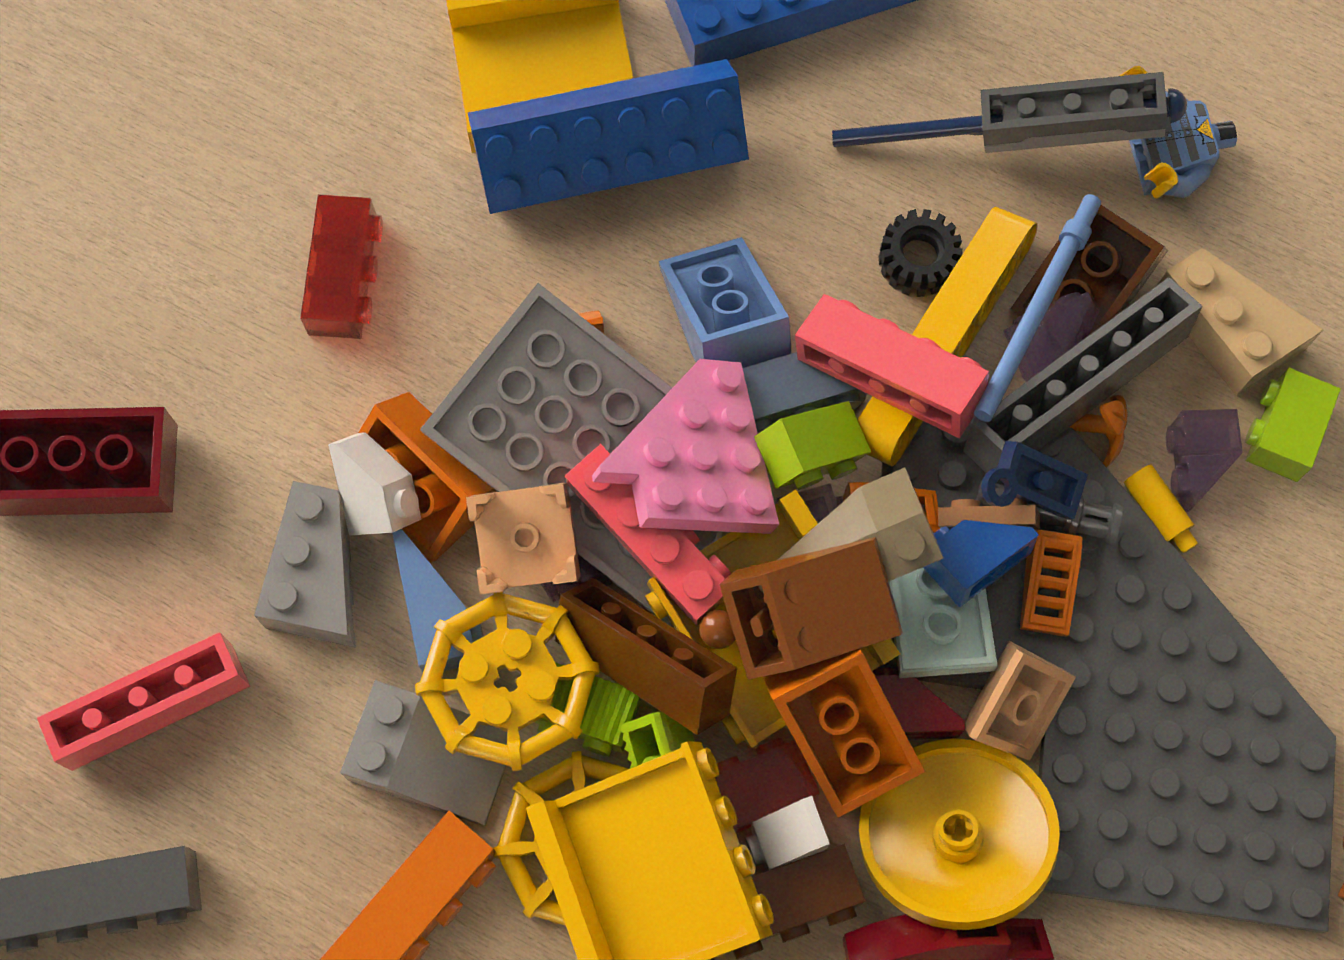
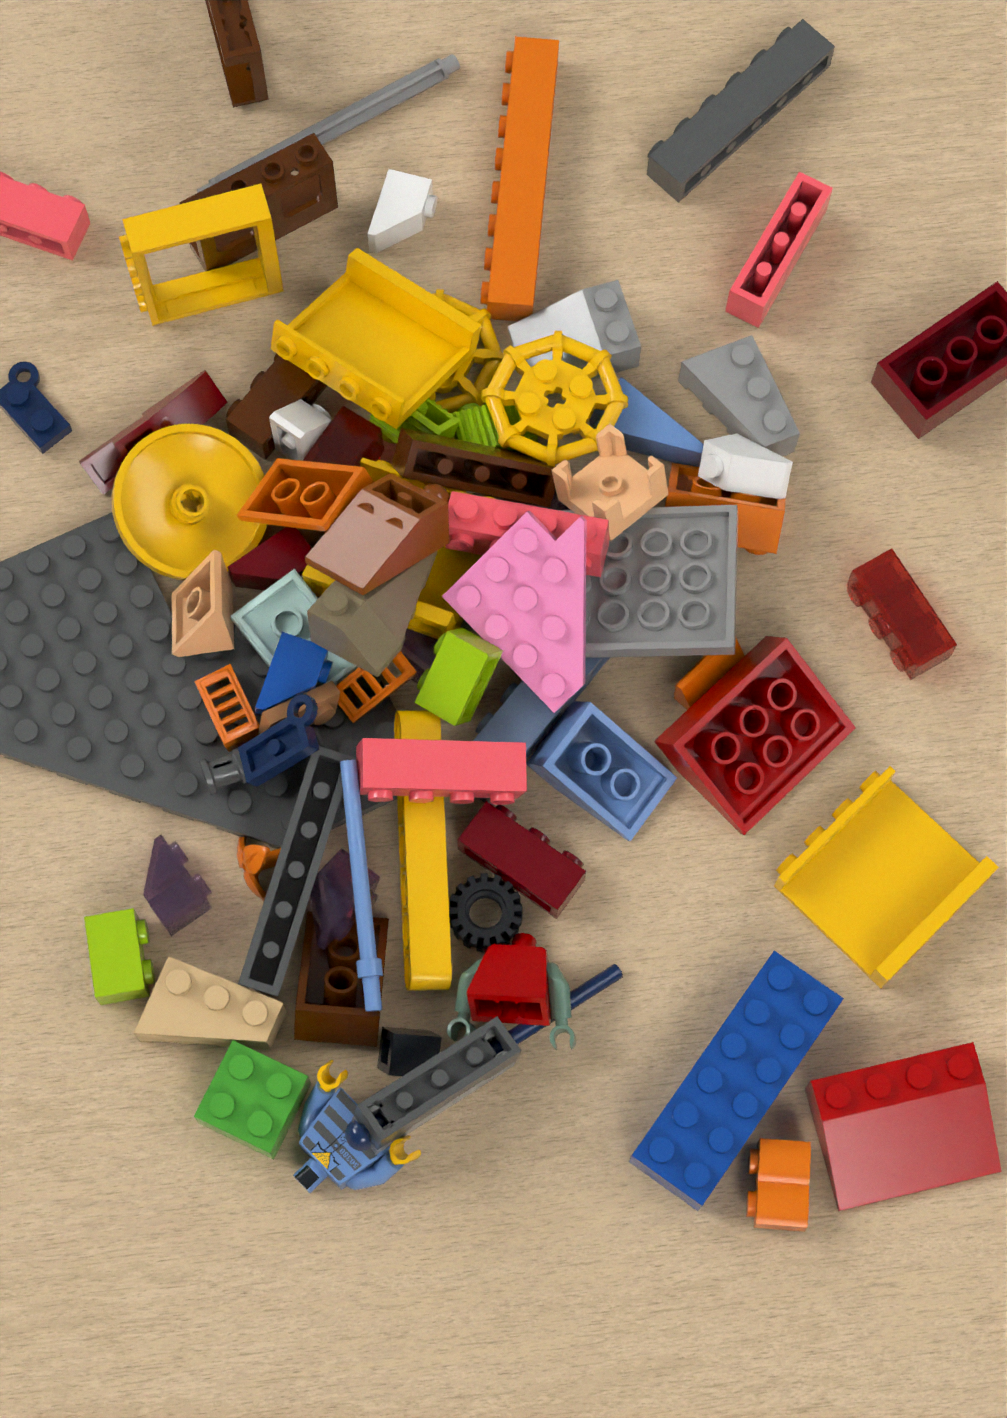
camera: 145 degrees right, 0 degrees up
(580, 248) = (756, 733): none -> red slope
(609, 135) = (781, 830): blue brick -> none
(853, 262) = (522, 858): none -> dark red brick
(942, 163) = (515, 986): none -> red torso
(1067, 176) = (406, 1049): none -> black panel
(1162, 507) = (181, 828): yellow cylinder -> none
(1238, 218) = (253, 1099): none -> bright green brick

